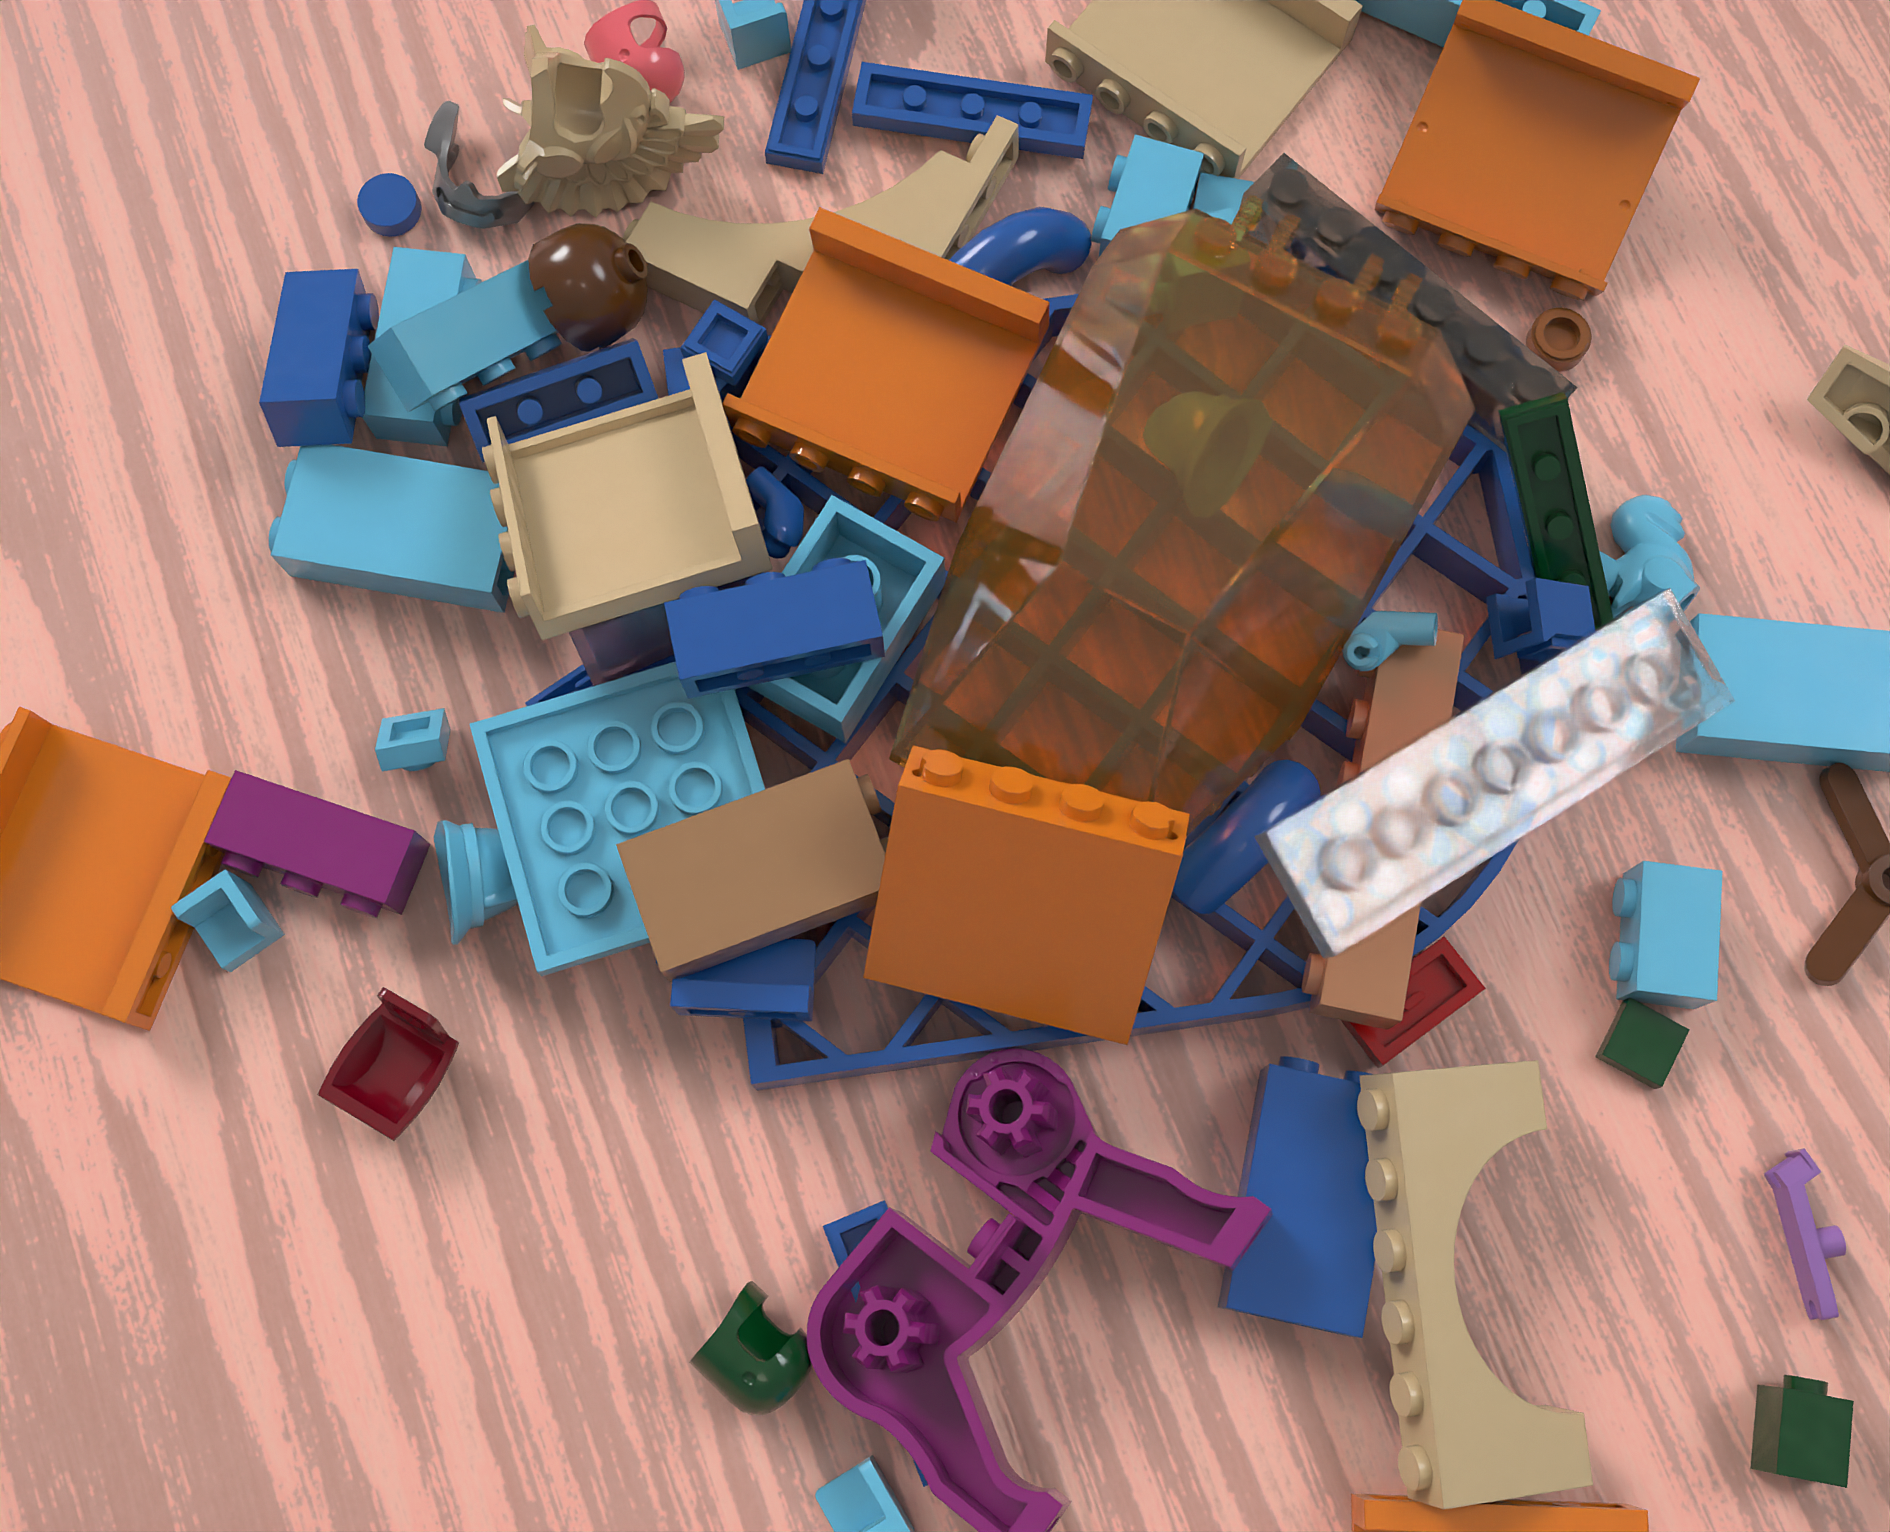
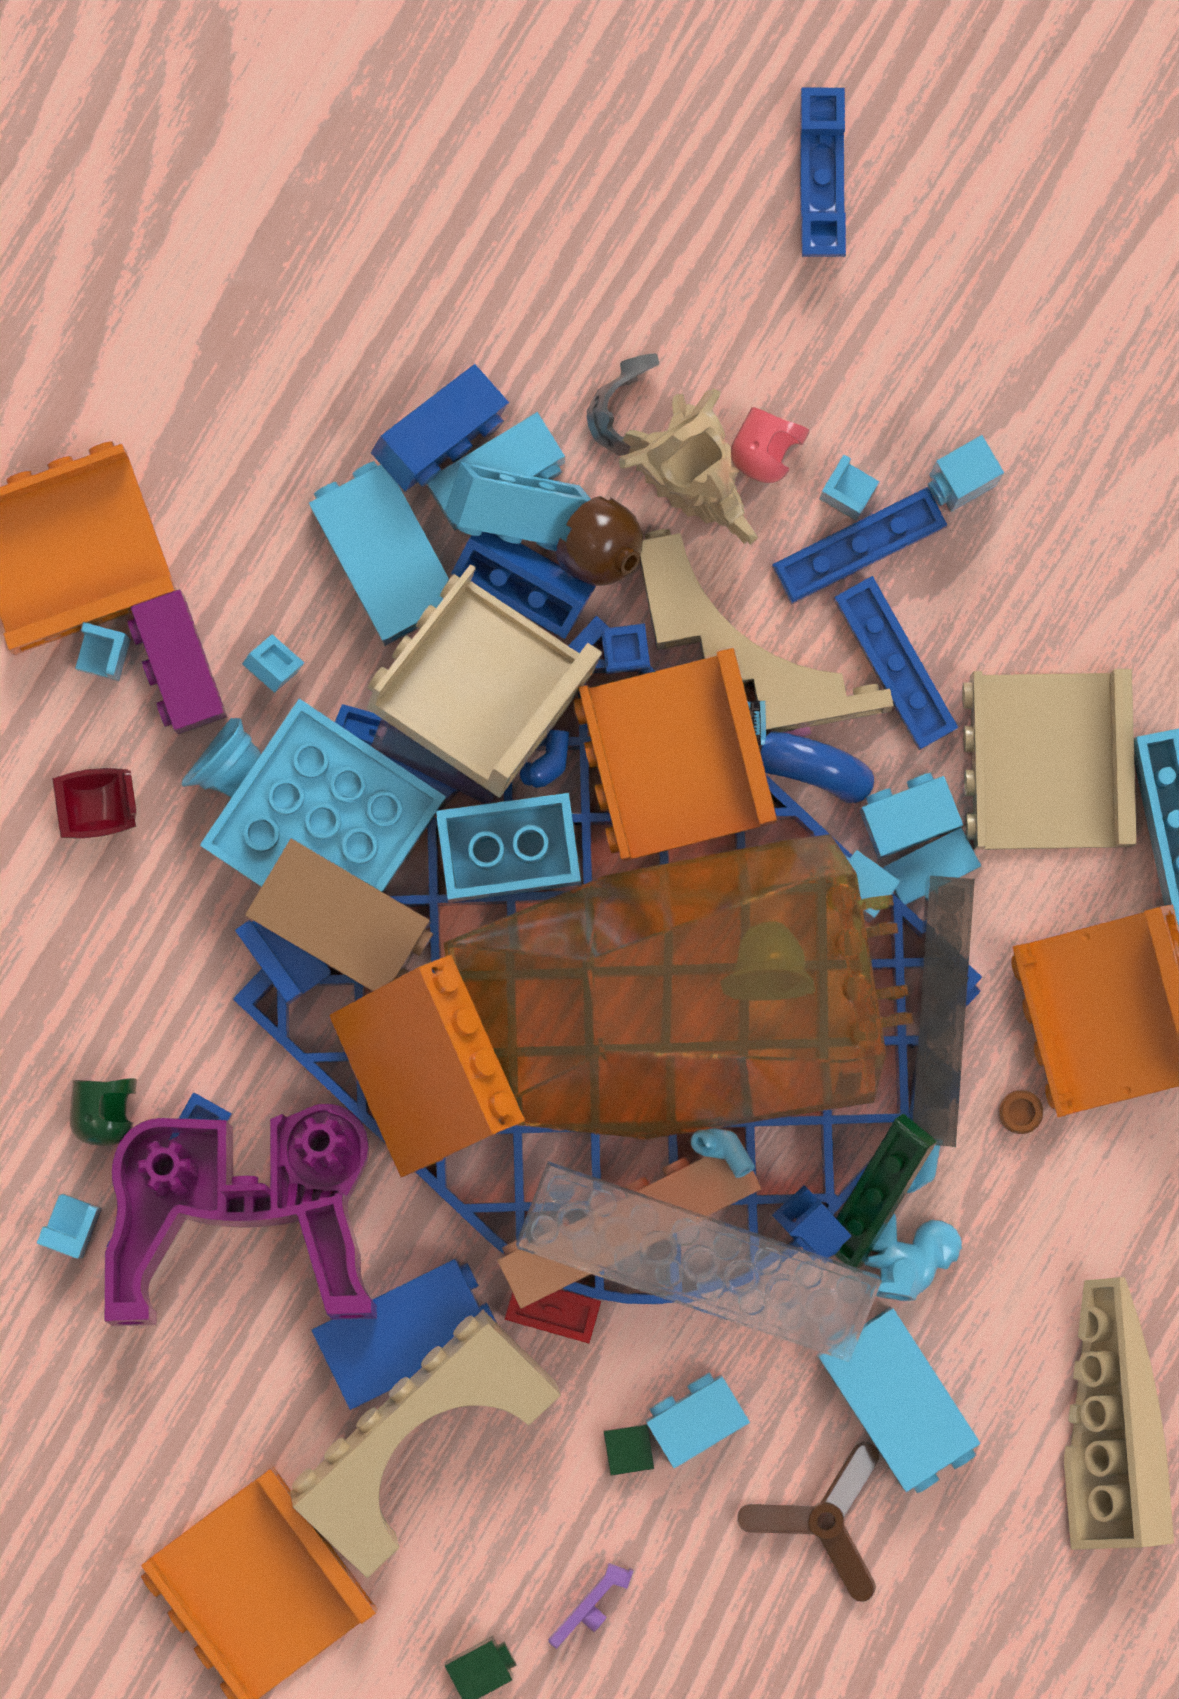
camera: 50 degrees right, 10 degrees up
(389, 204) = (569, 373): blue tile -> none
(774, 627) = (466, 826): blue brick -> none
(1227, 851) = (531, 1149): blue cylinder -> none

